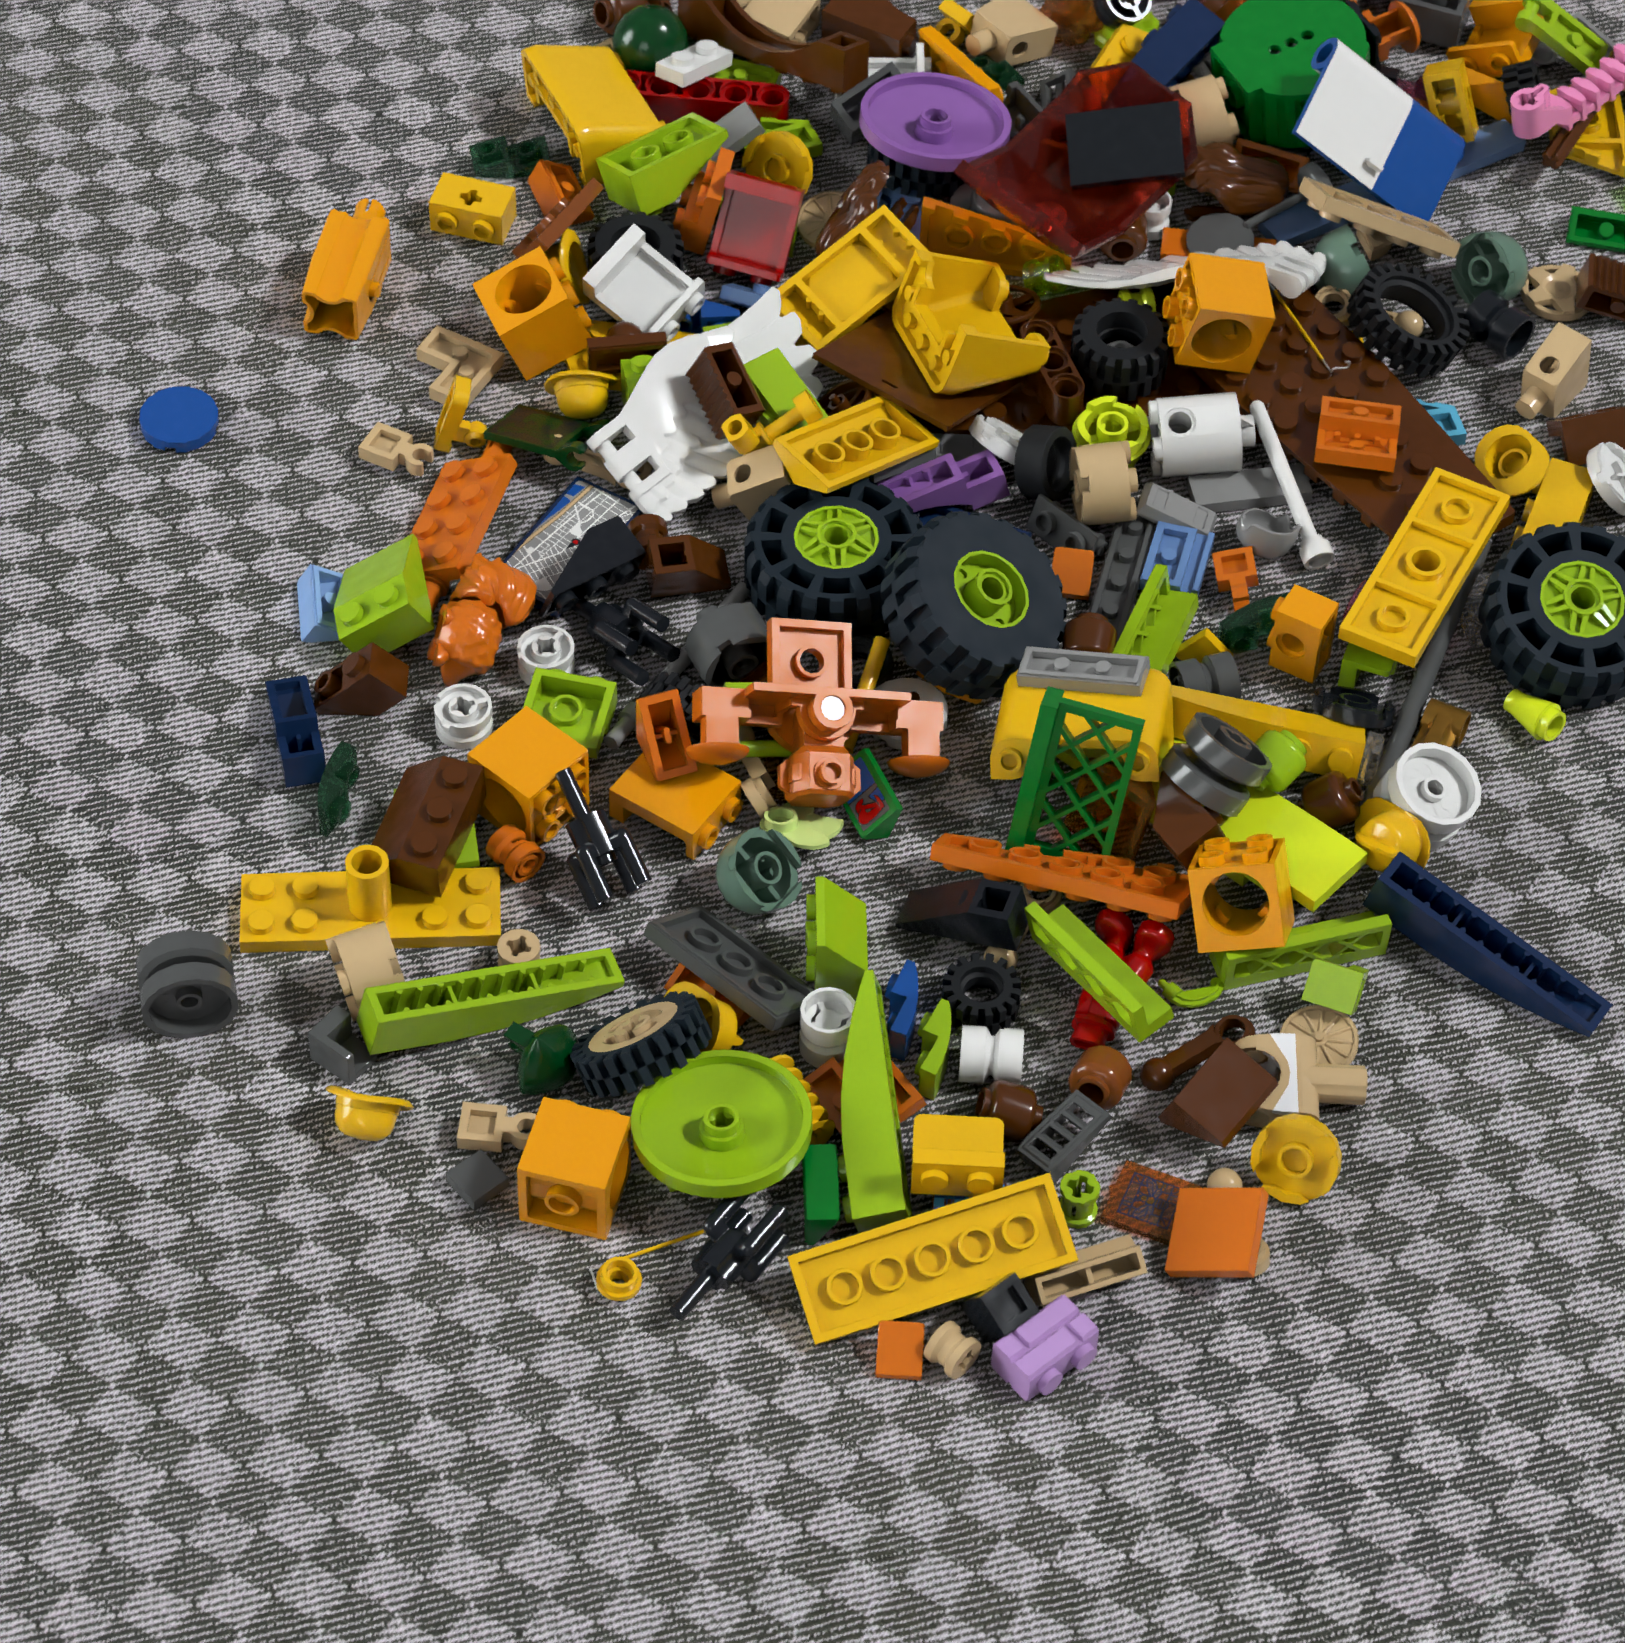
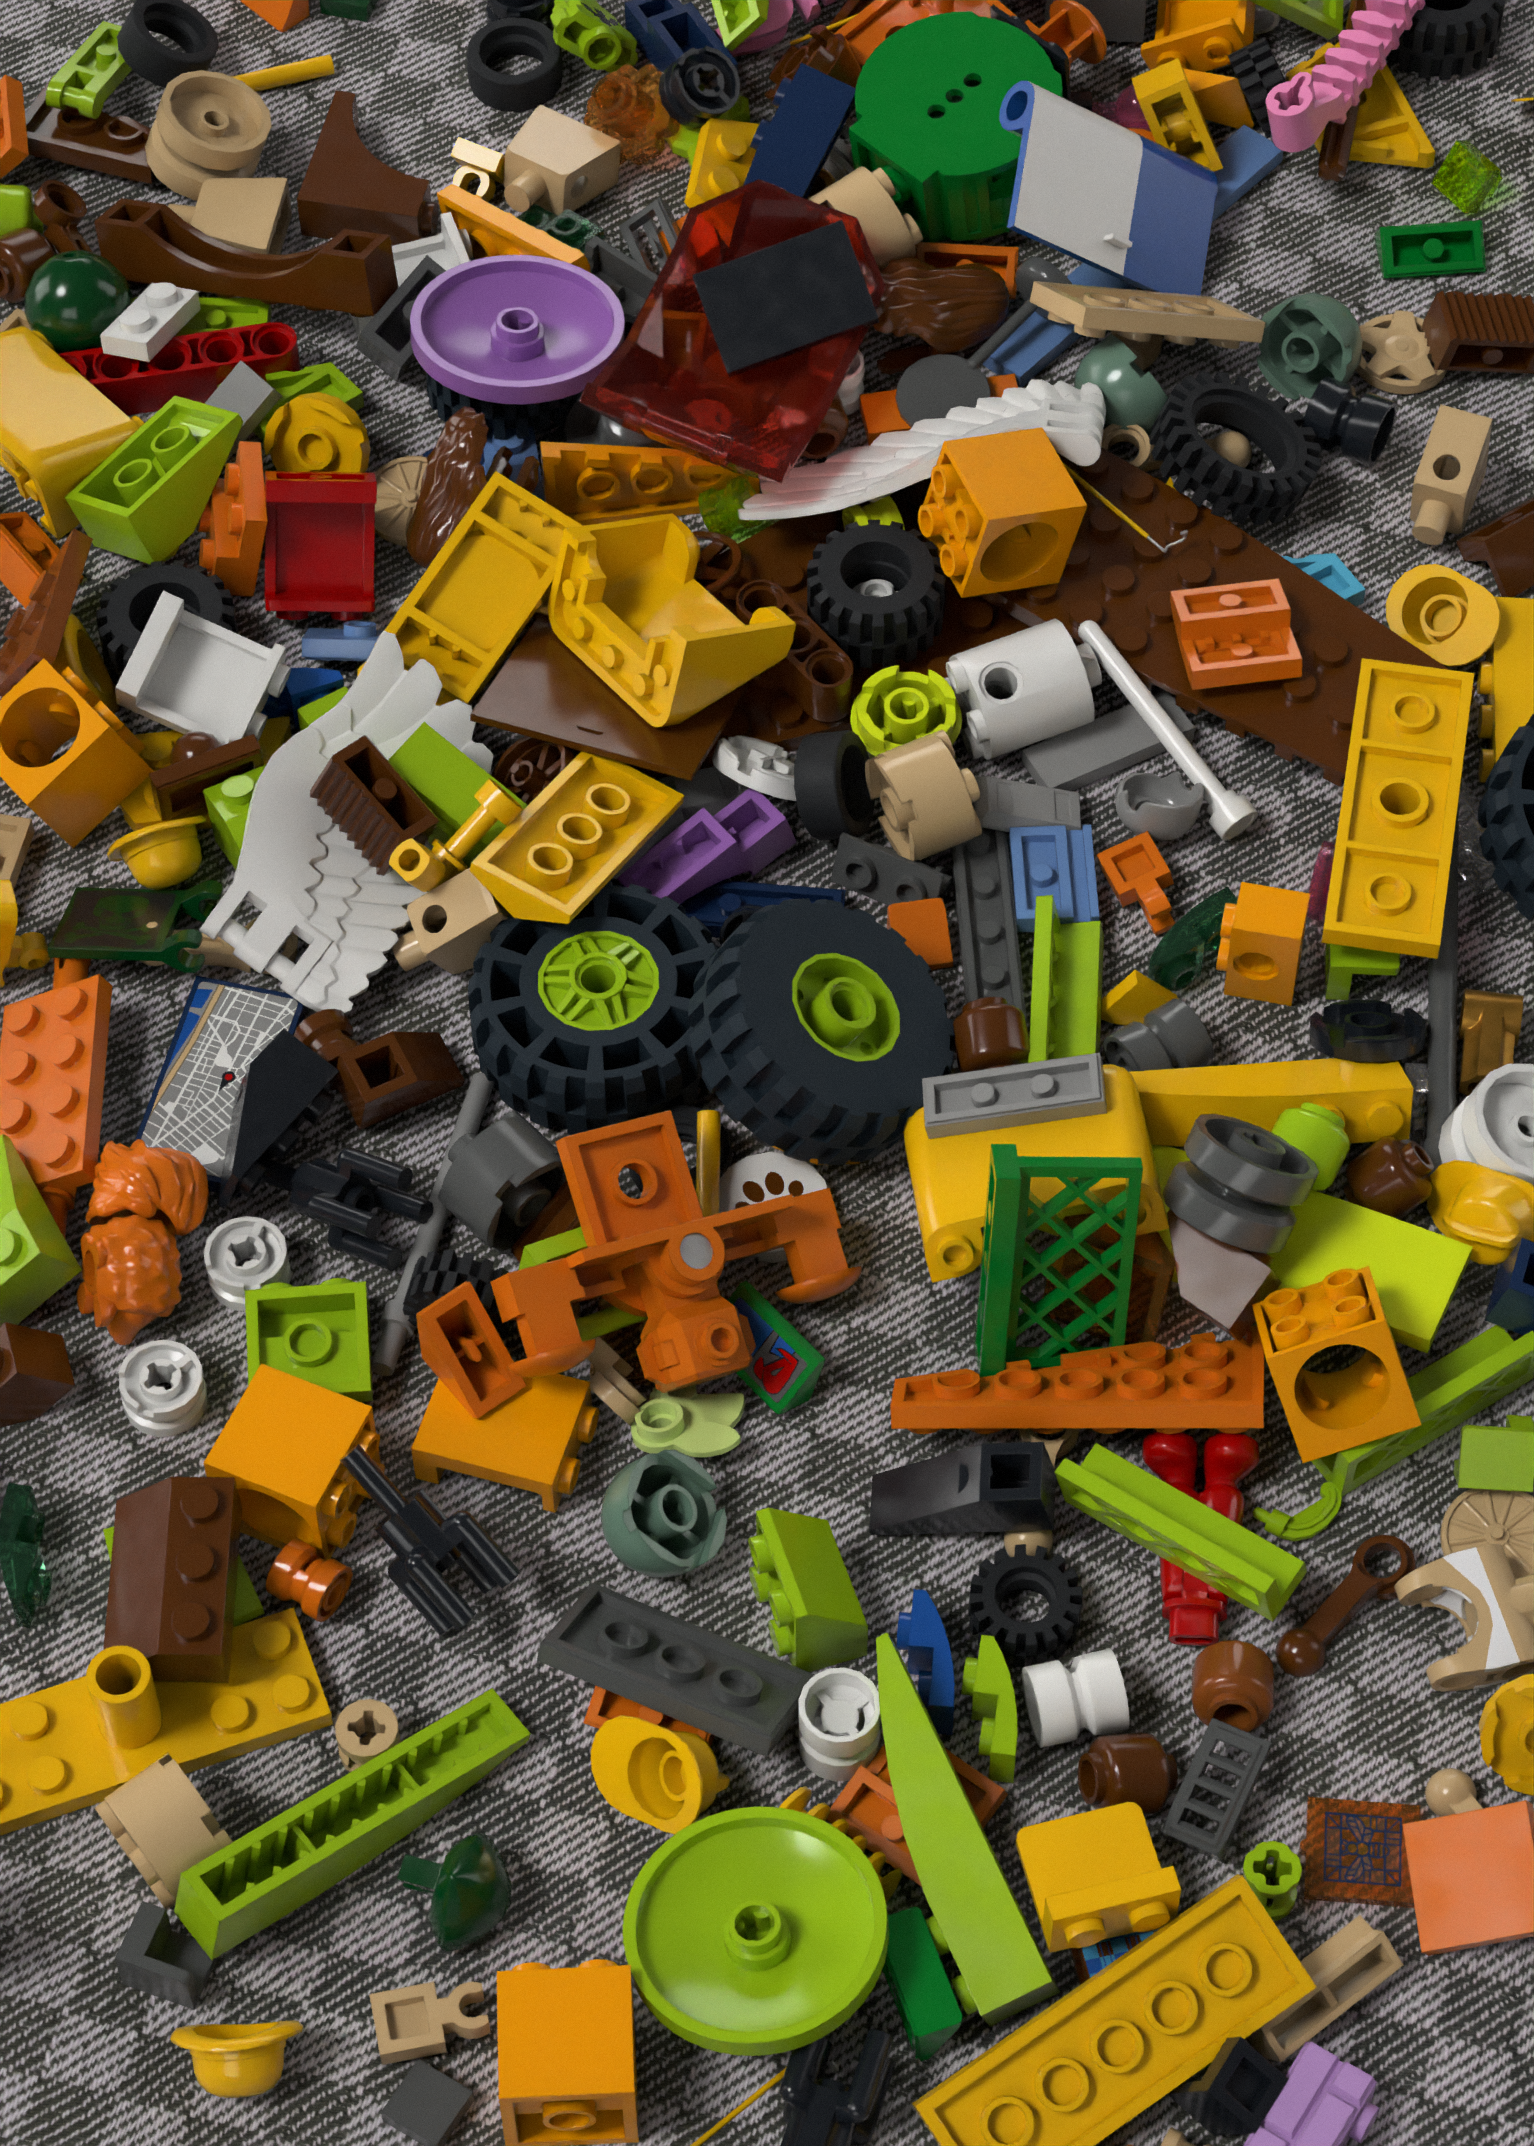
camera: 15 degrees left, 5 degrees up
(641, 1044) = (598, 1838): black wheel -> none
(1220, 1096) = (1405, 1669): reddish brown slope -> none

